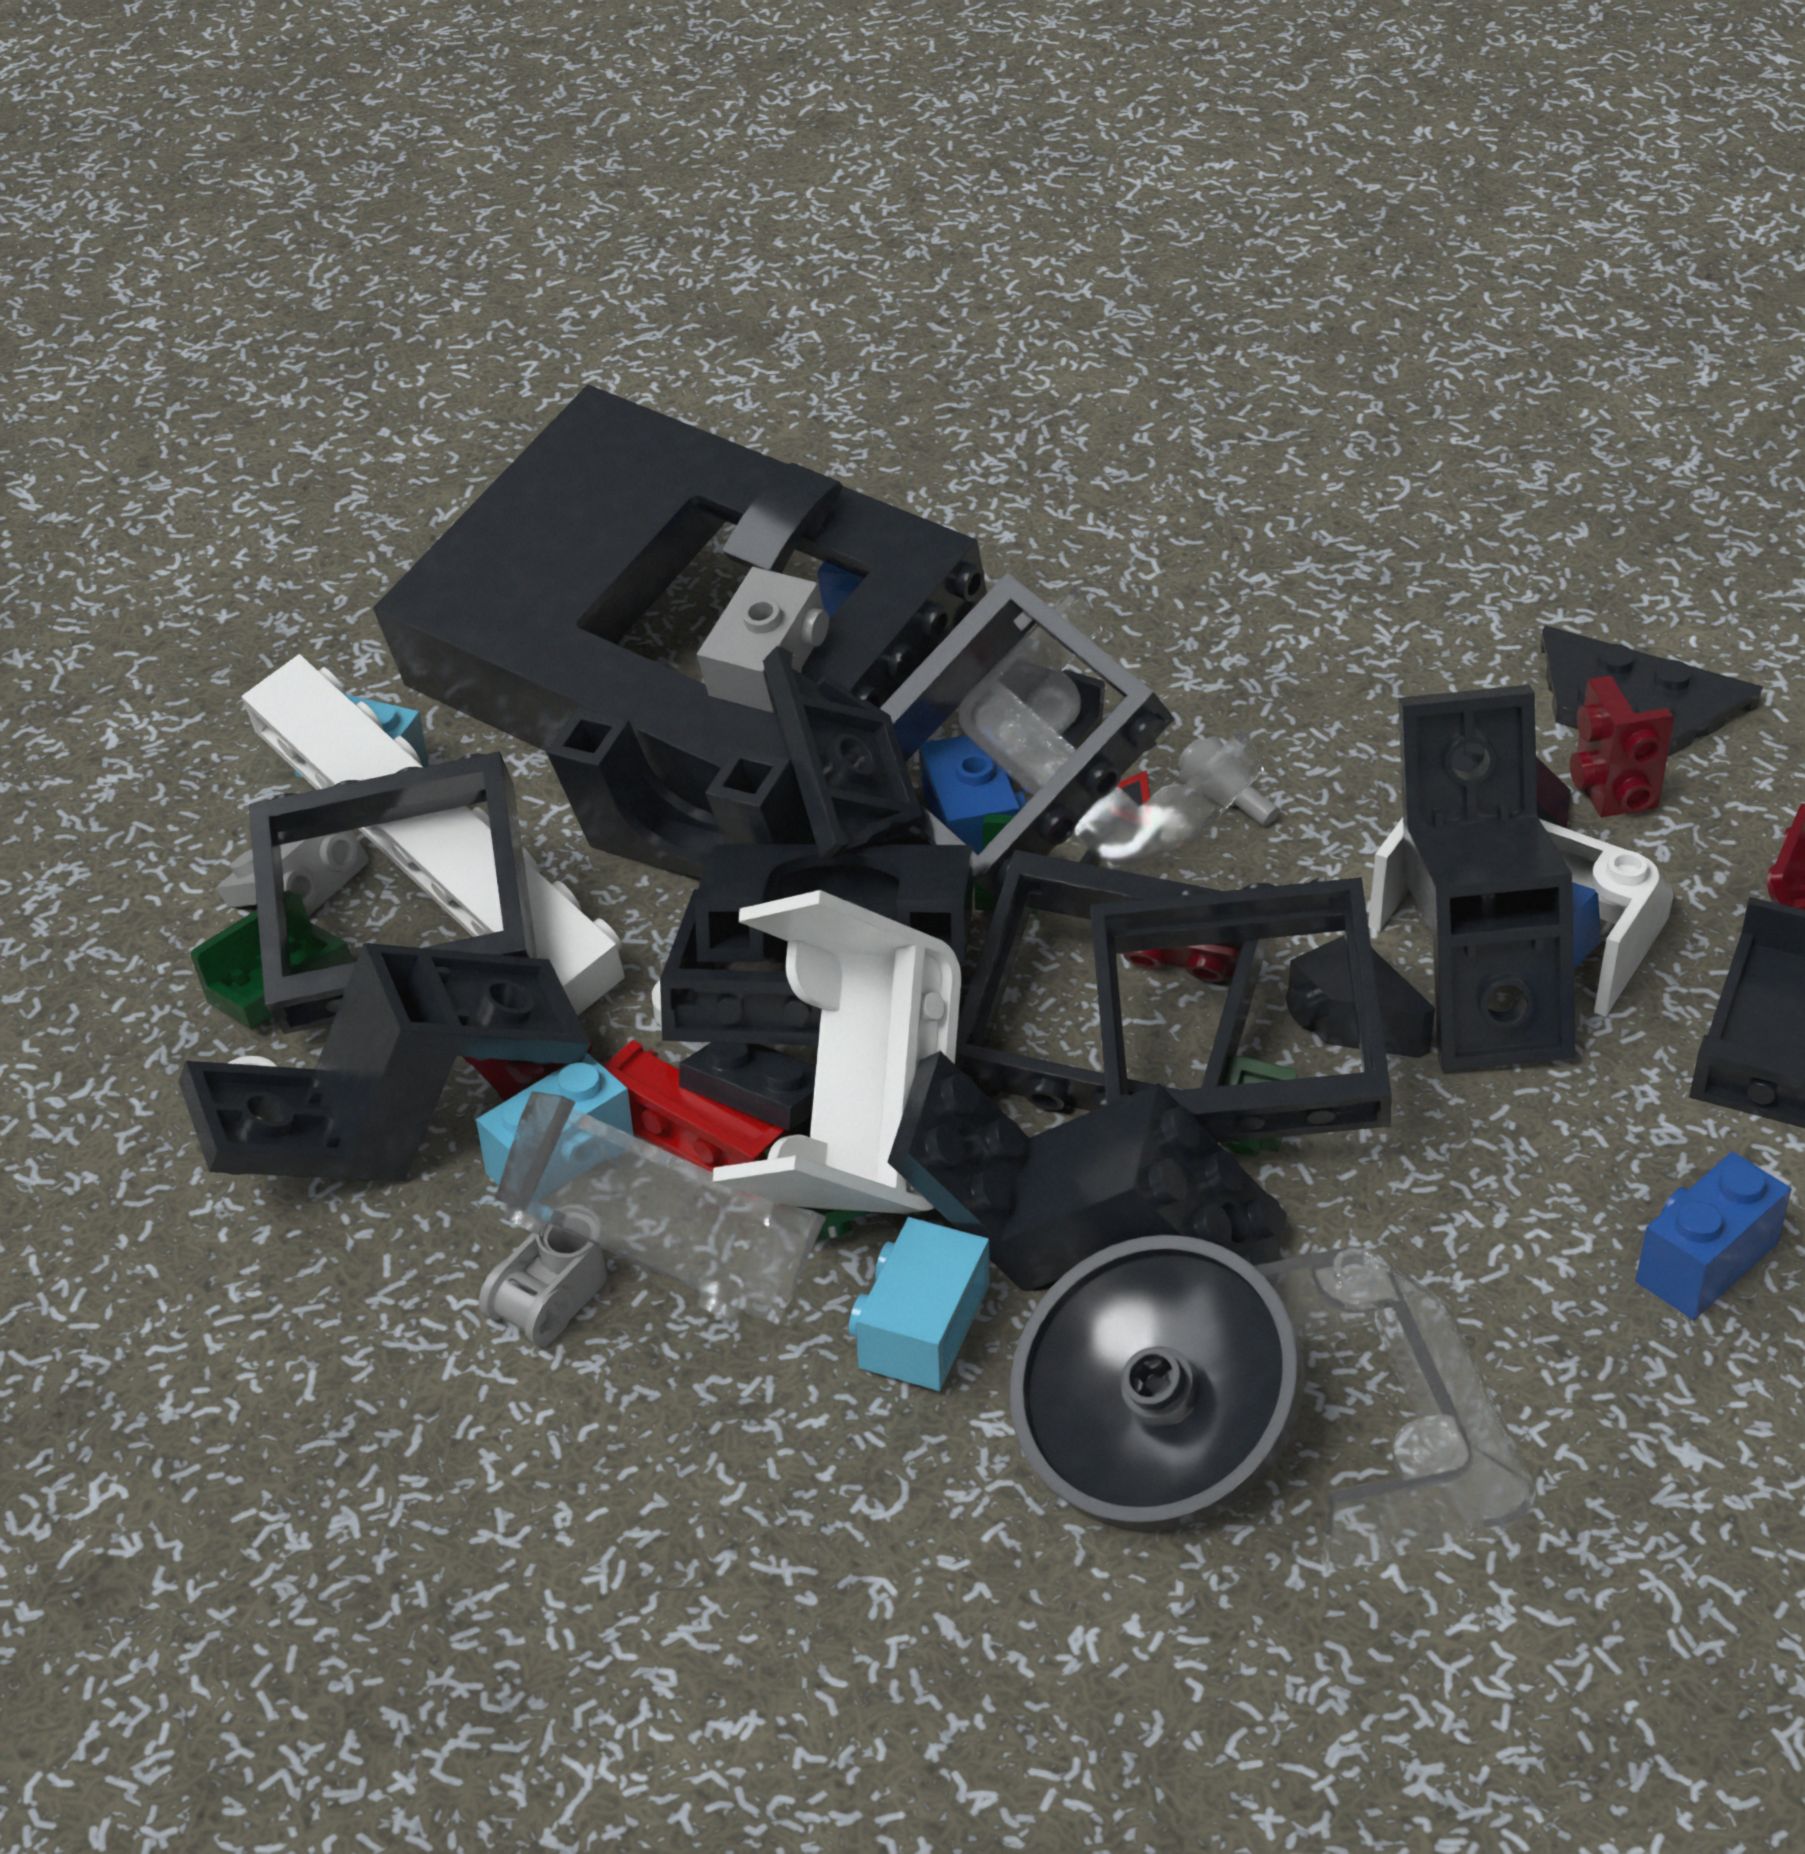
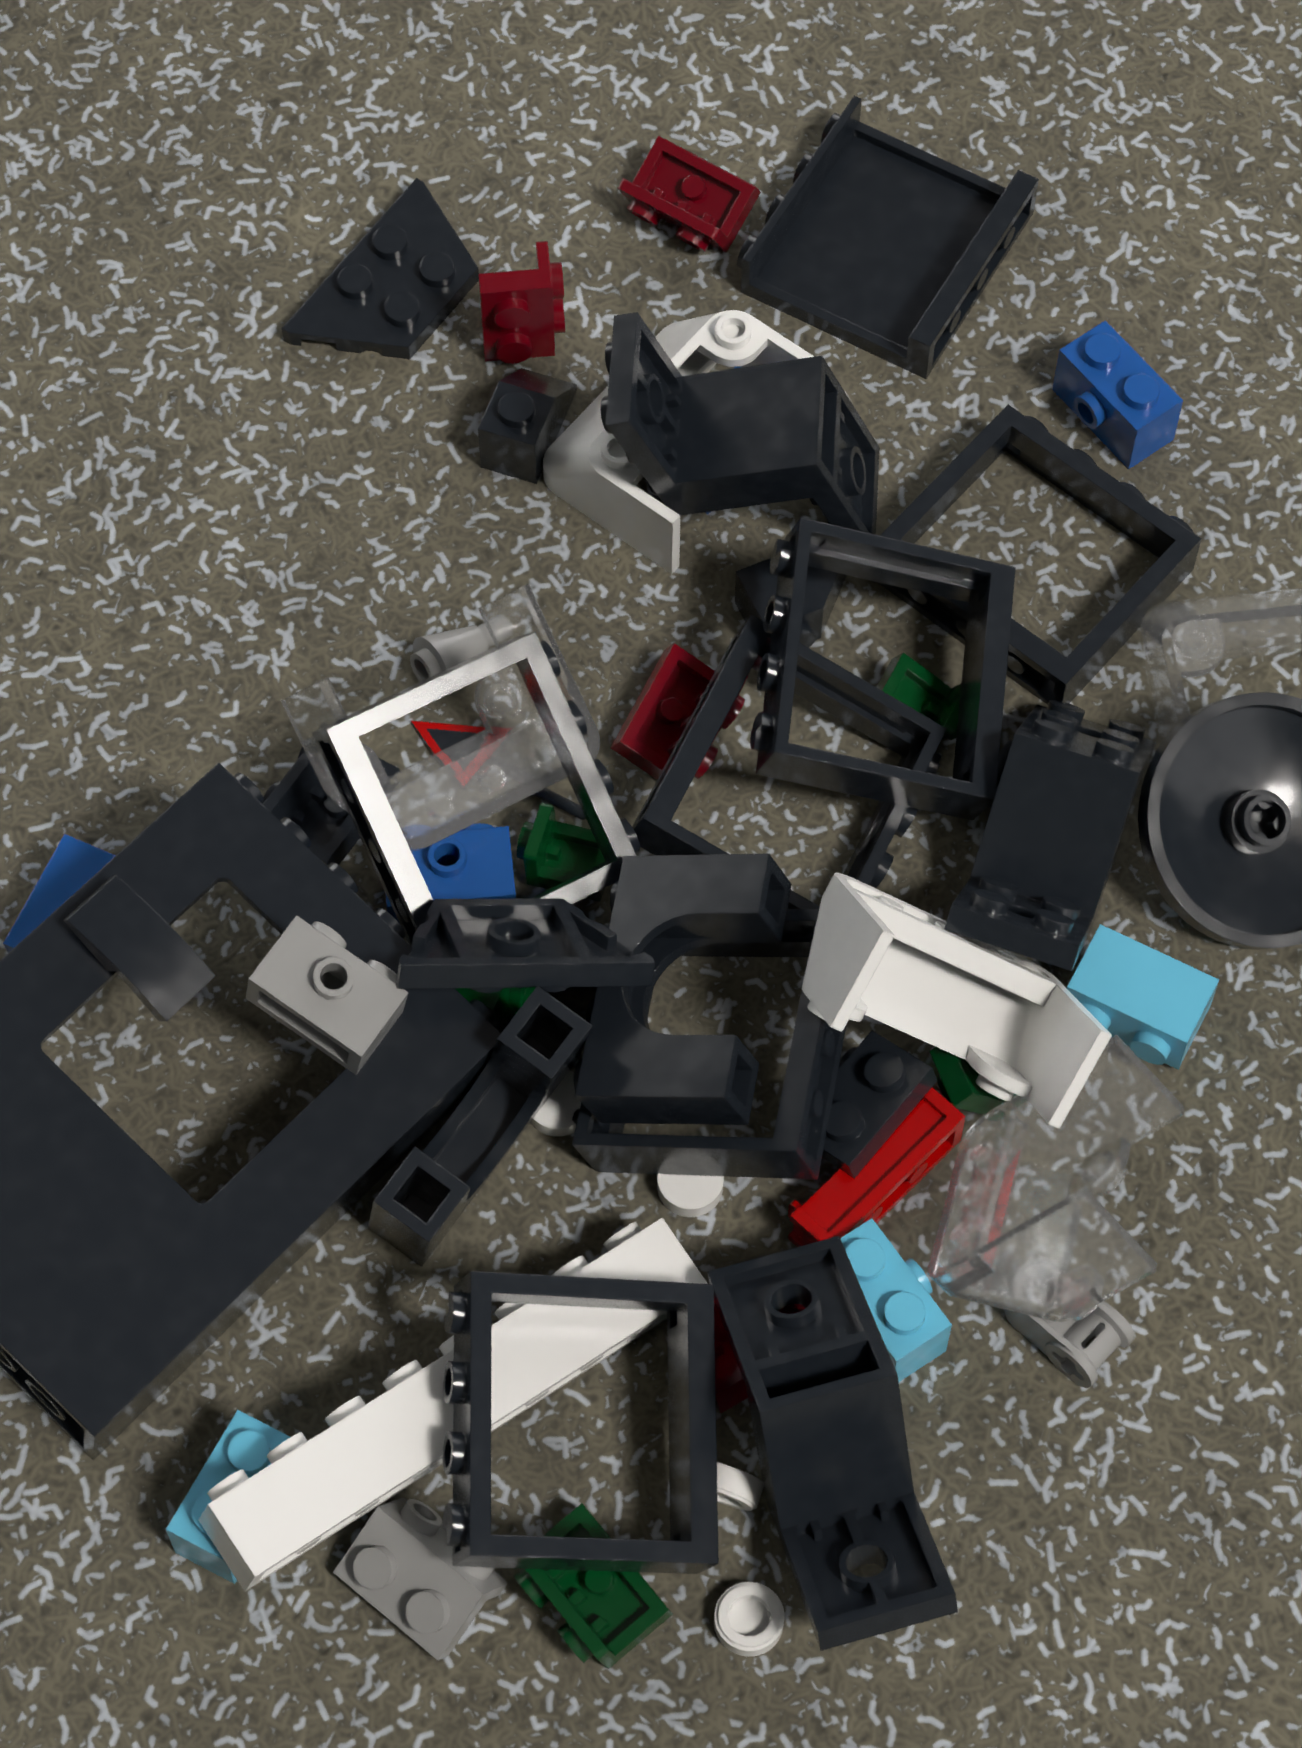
camera: 85 degrees left, 20 degrees up
(1477, 1296) = (1122, 505): none -> black window

